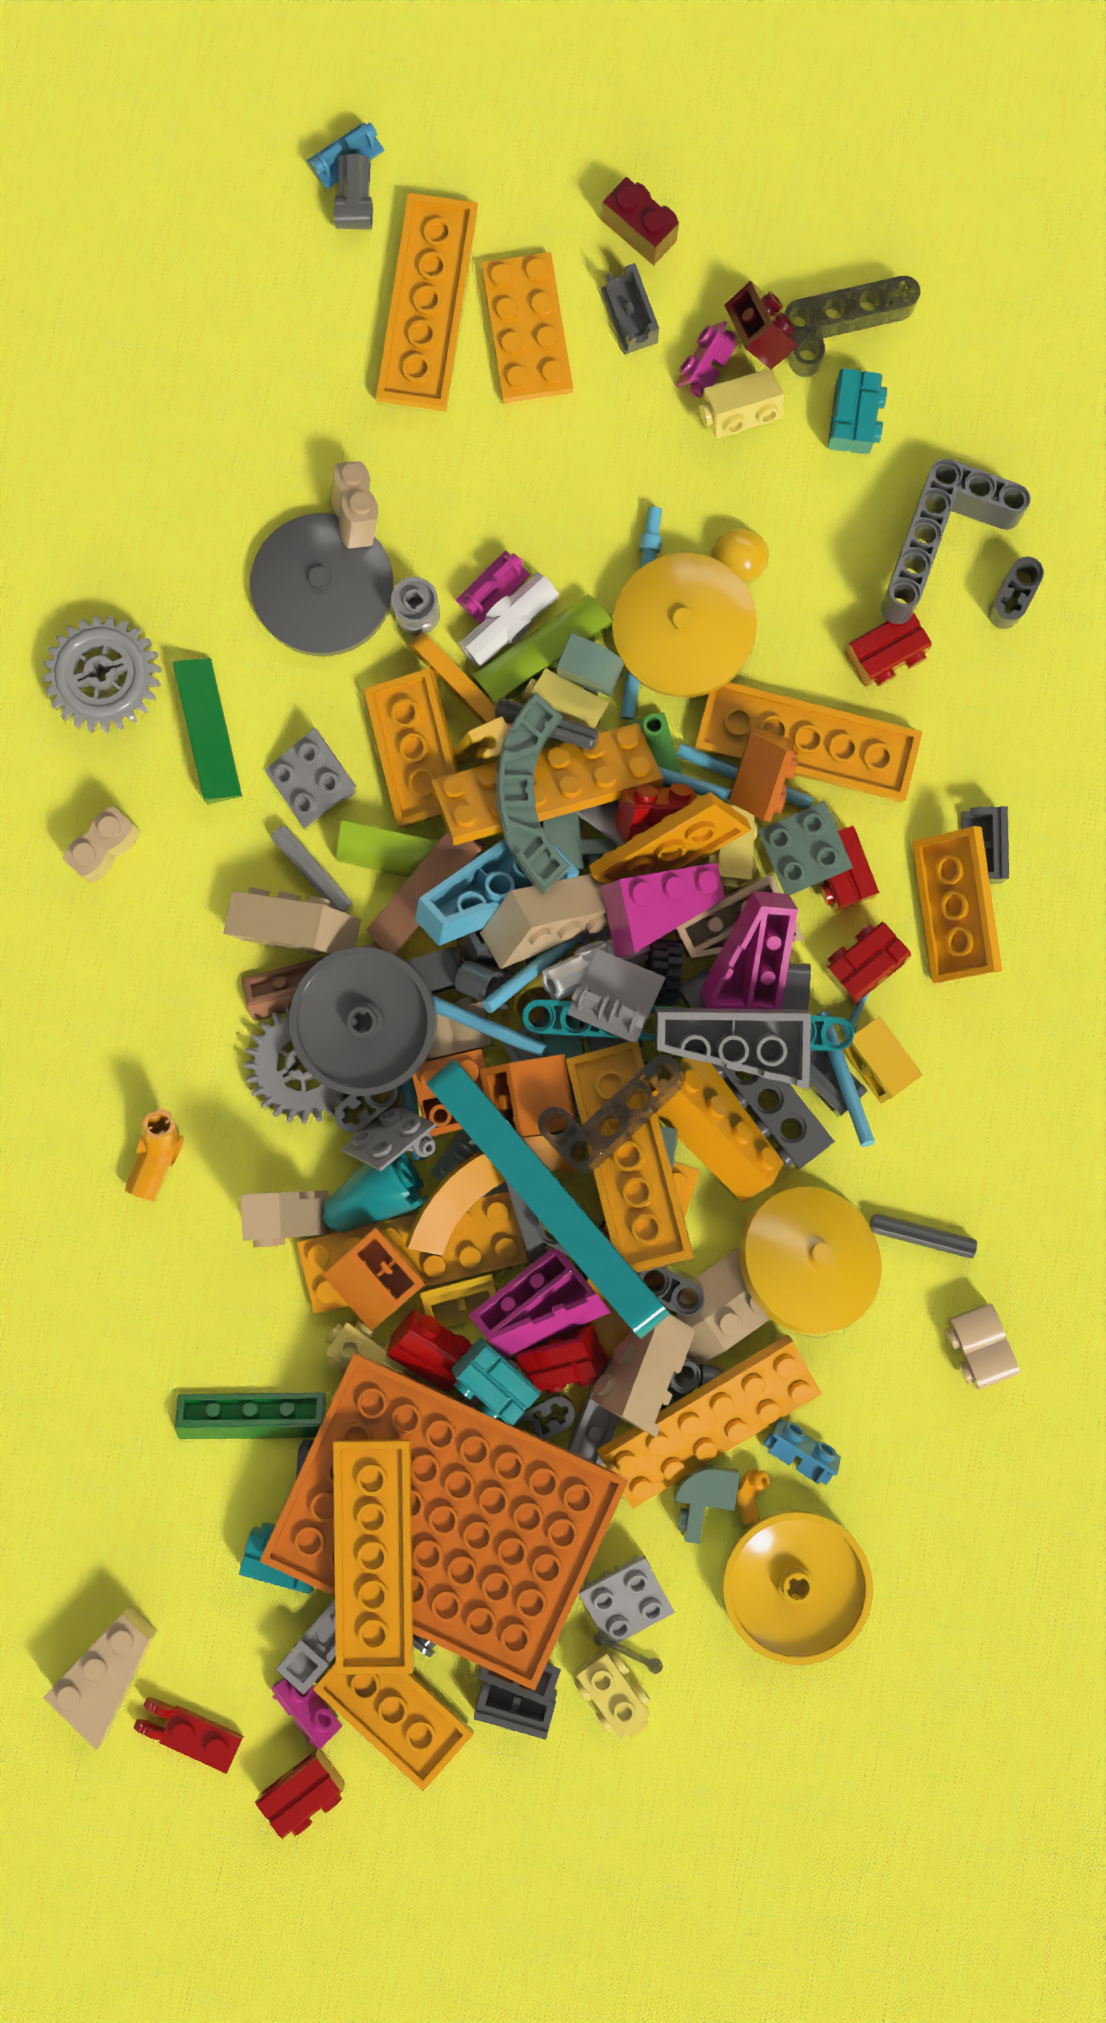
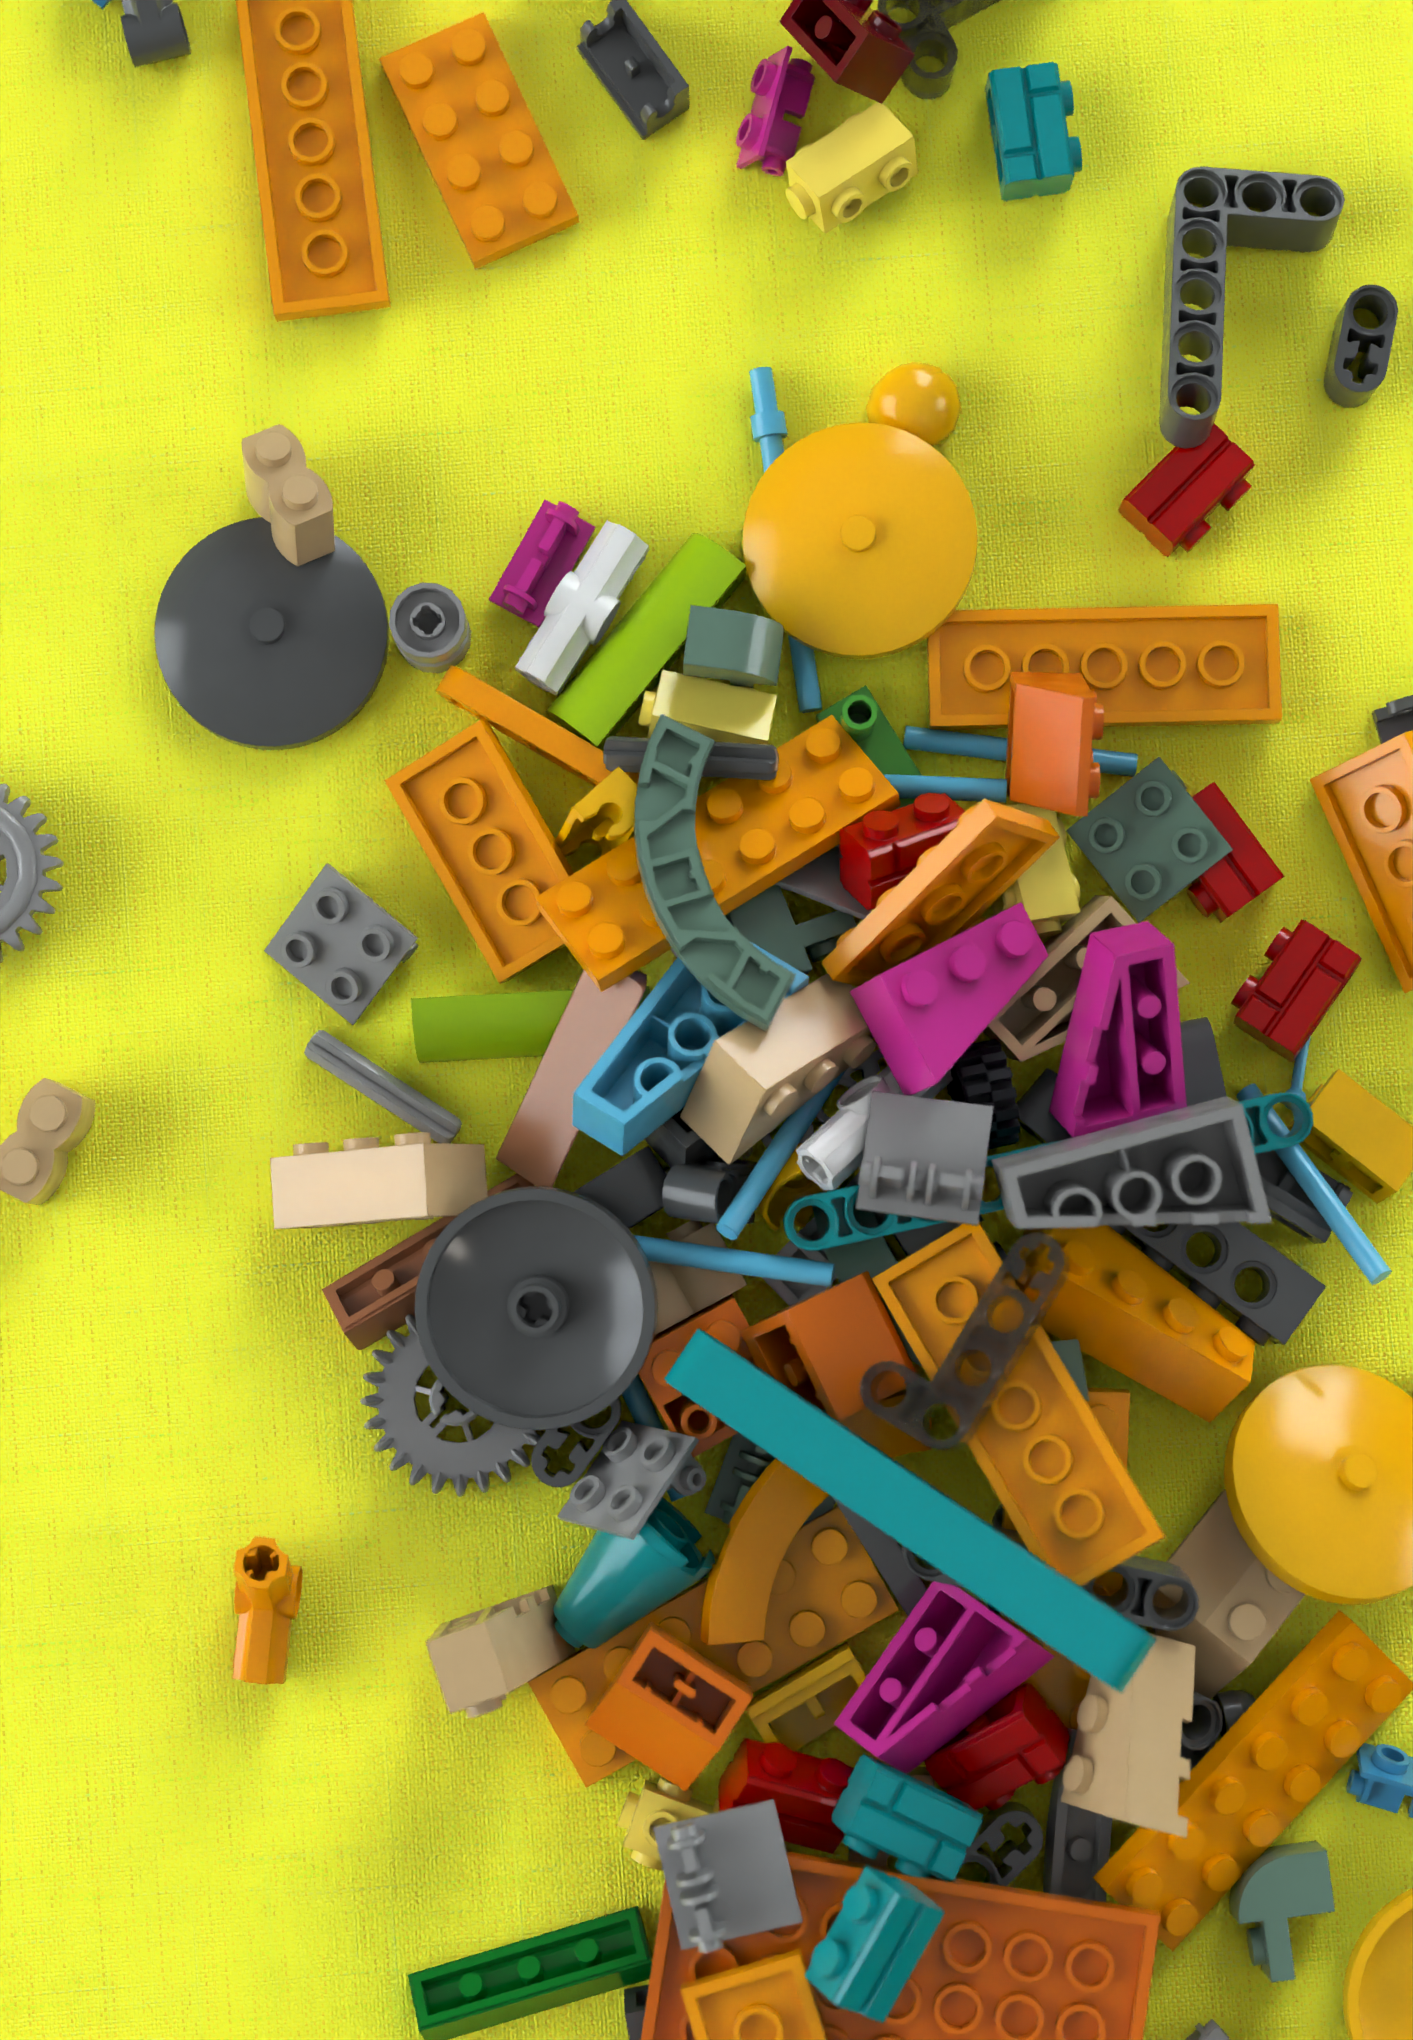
camera: 15 degrees left, 0 degrees up
(207, 730) = (157, 913): green slope -> none
(380, 1383) = (727, 1875): none -> light grey hinge
(454, 1447) = (874, 1944): none -> teal brick
(748, 1490) = (1346, 1862): light orange arm -> none

